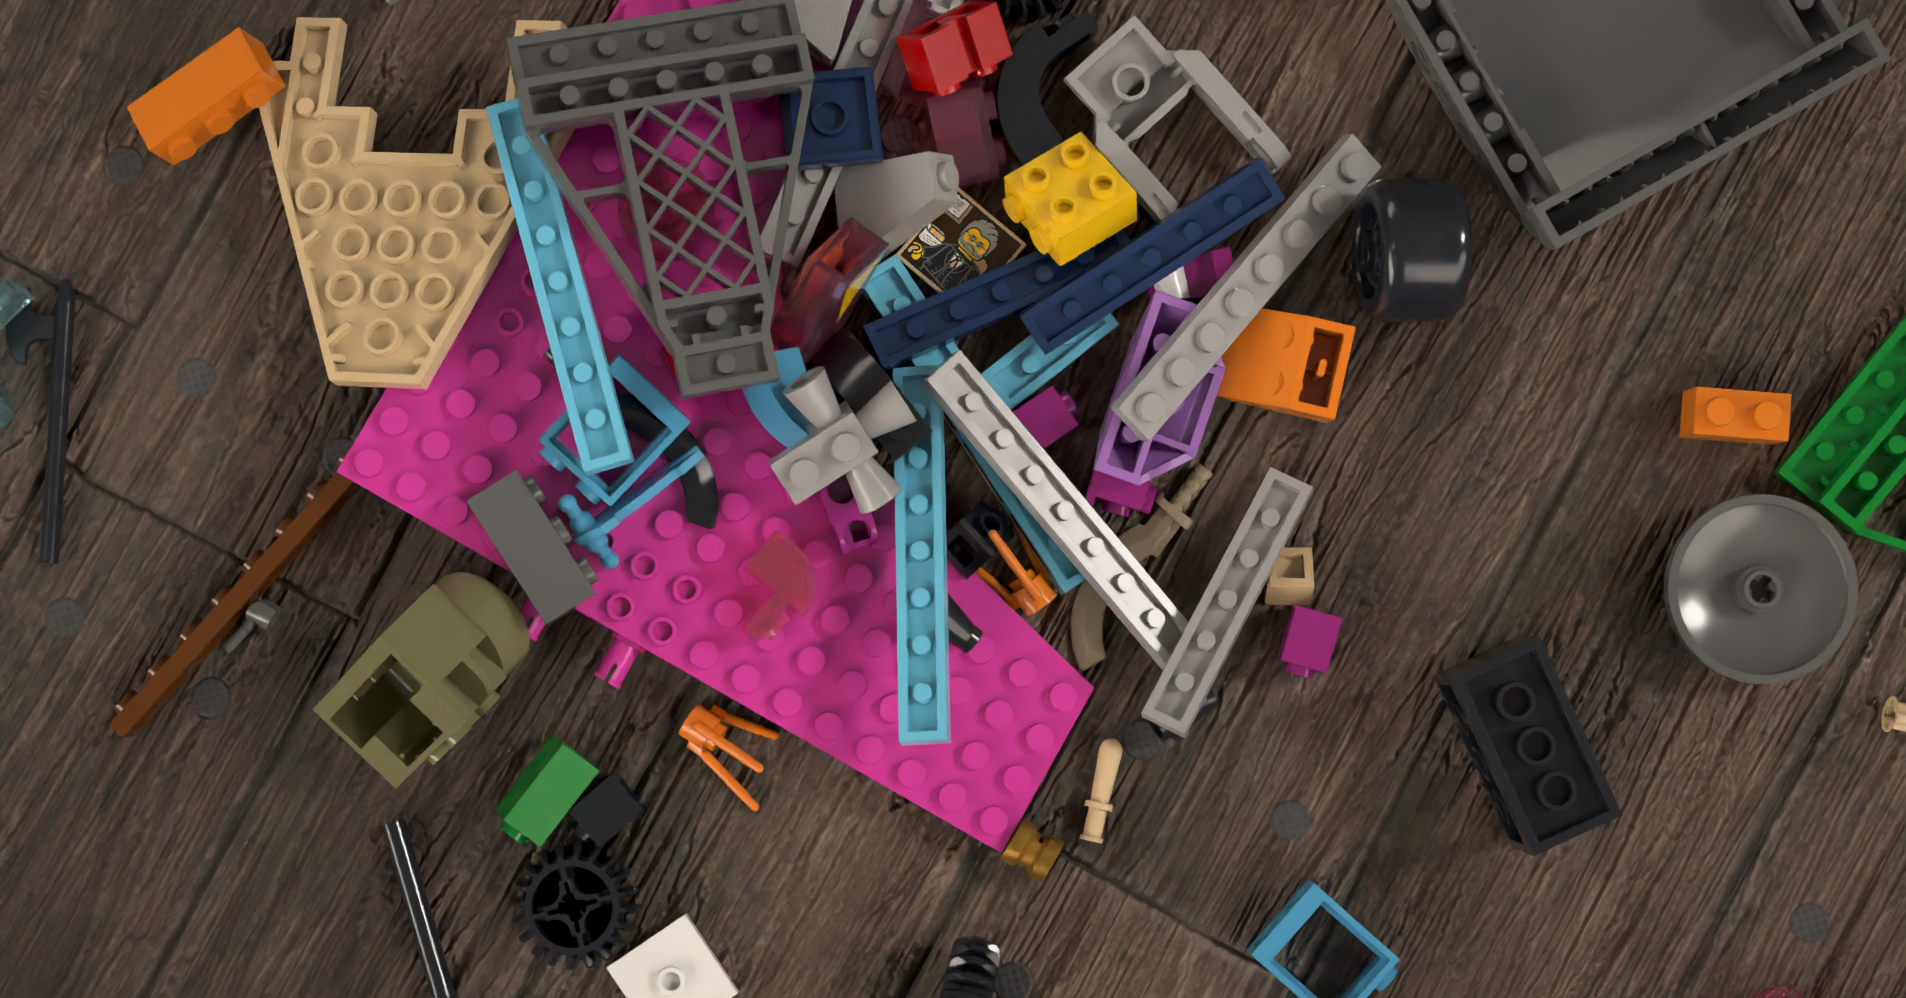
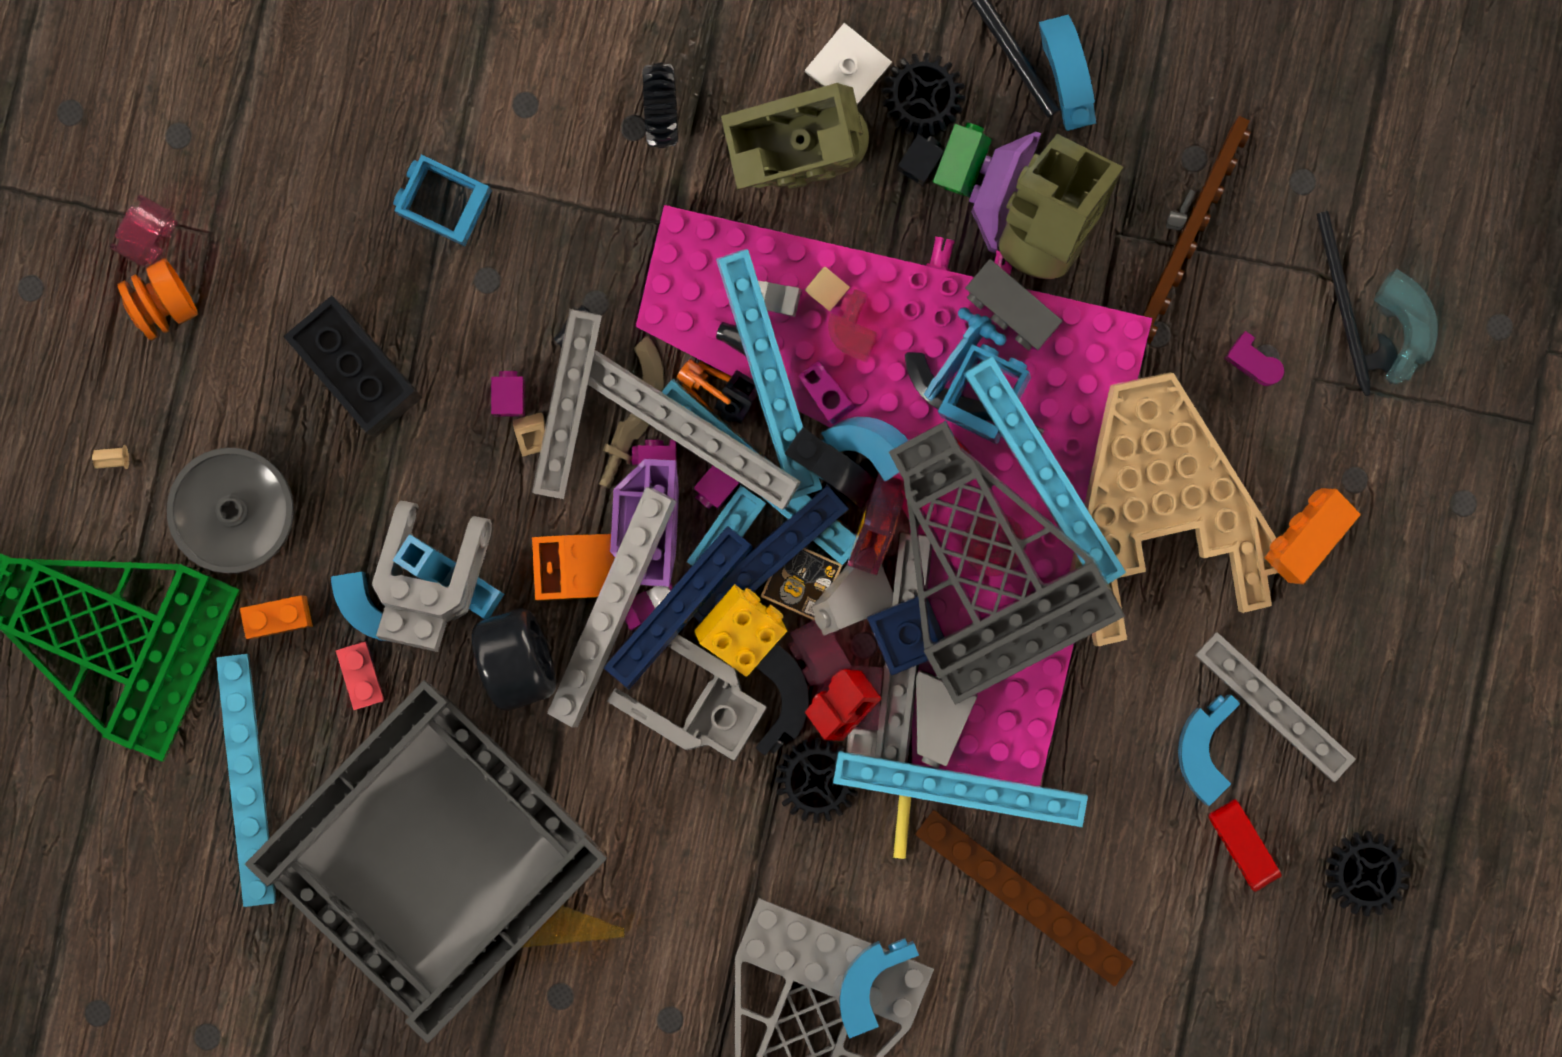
camera: 160 degrees right, 0 degrees up
(214, 373) = (1253, 363): none -> magenta leg
(347, 877) = (1069, 70): none -> dark azure arch
(503, 736) = (998, 185): none -> medium lavender wedge
(705, 730) = (873, 227): orange plant -> none
(779, 891) = (797, 138): none -> olive brick
(799, 655) = (827, 288): none -> tan slope
(840, 442) = (839, 425): light grey brick -> none
(872, 662) = (780, 298): none -> light grey leg
(1031, 850) = (645, 212): pearl gold wheel -> none
(1104, 778) = (611, 254): tan piece -> none
(1475, 409) = (436, 567): none -> dark azure arch
(1529, 360) = (418, 608): none -> light grey plate
(1608, 384) = (355, 602): none -> dark azure arch
(1634, 299) = (360, 675): none -> coral plate
(1784, 929) = (157, 299): none -> orange wheel
(1837, 220) = (244, 772): none -> medium azure plate

